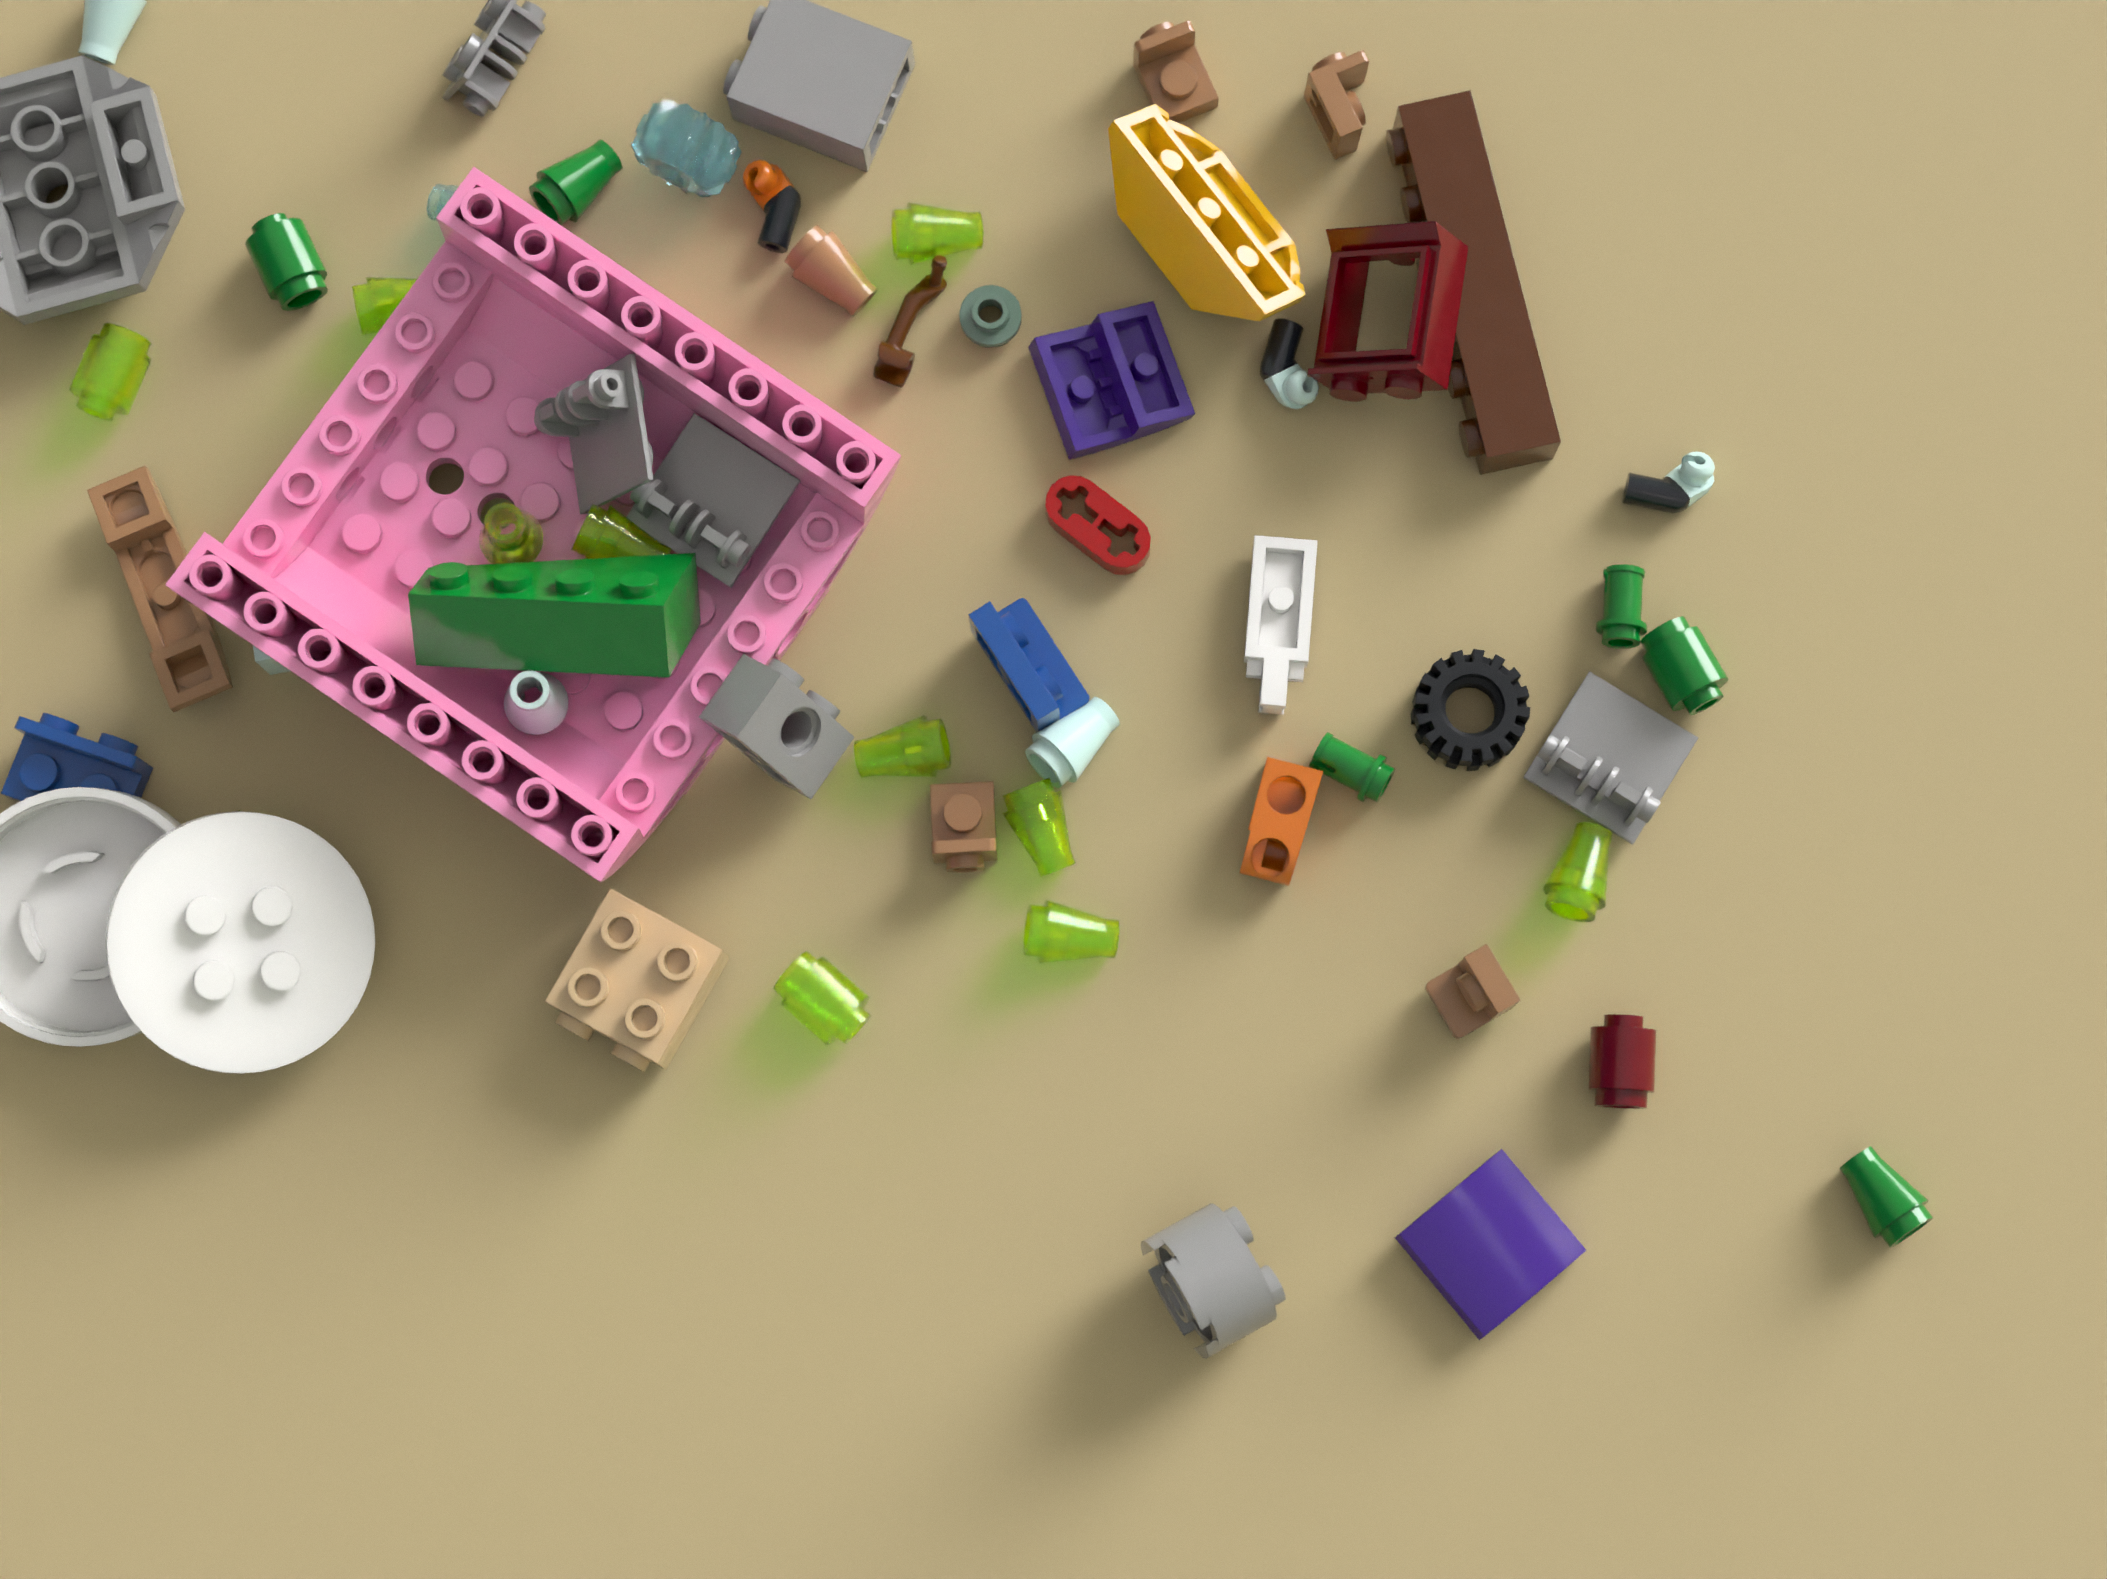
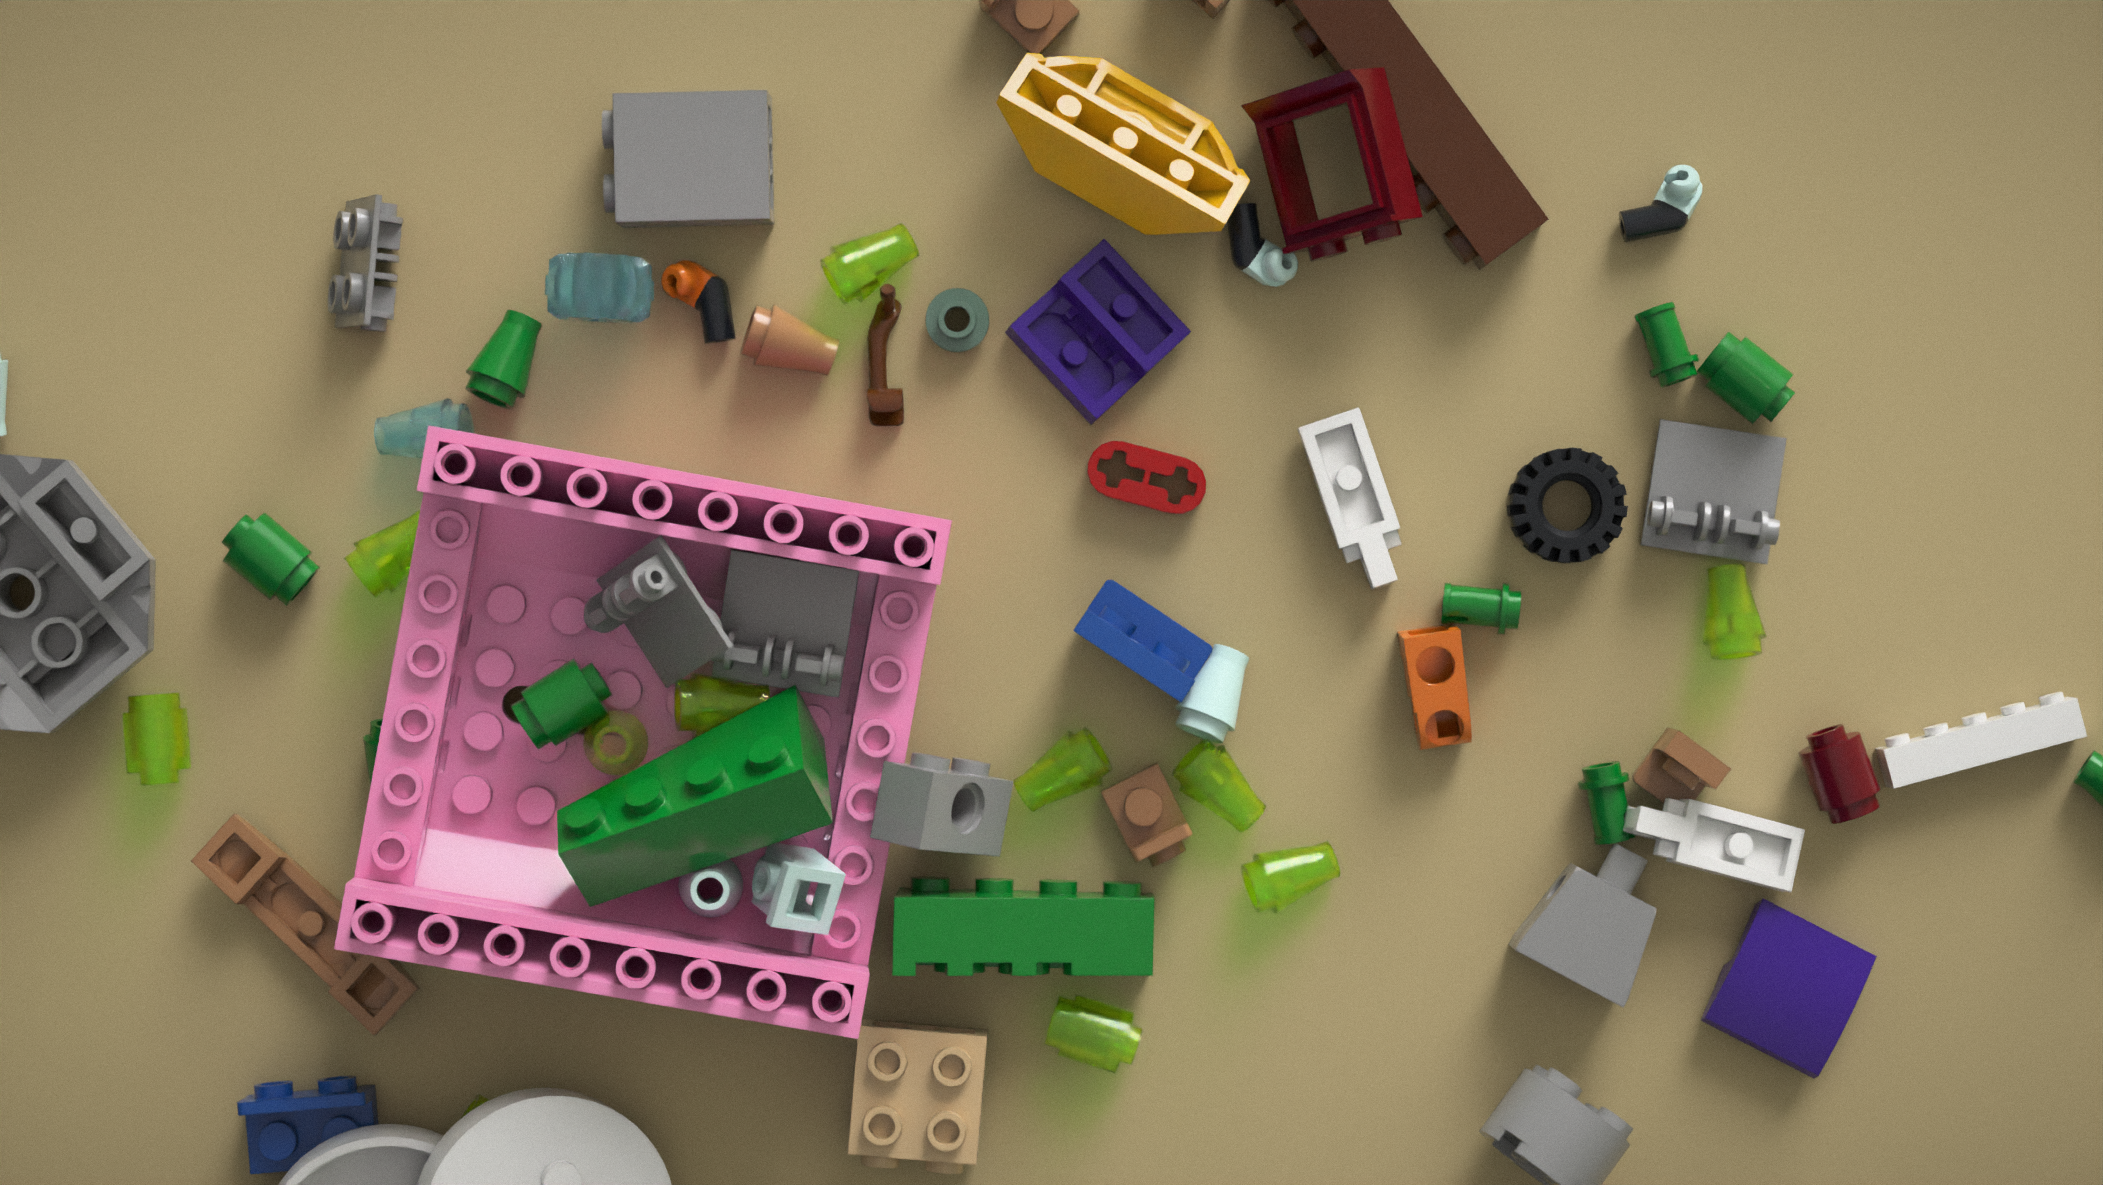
camera: 25 degrees left, 10 degrees up
(478, 478) = (562, 703): none -> green brick
(610, 732) = (782, 886): none -> light aqua brick
(798, 873) = (1023, 928): none -> green wedge
(1329, 1102) = (1592, 926): none -> light grey torso
(1393, 996) = (1606, 801): none -> green pin
(1483, 1075) = (1720, 841): none -> white hinge
(1767, 1090) = (1980, 740): none -> white piece

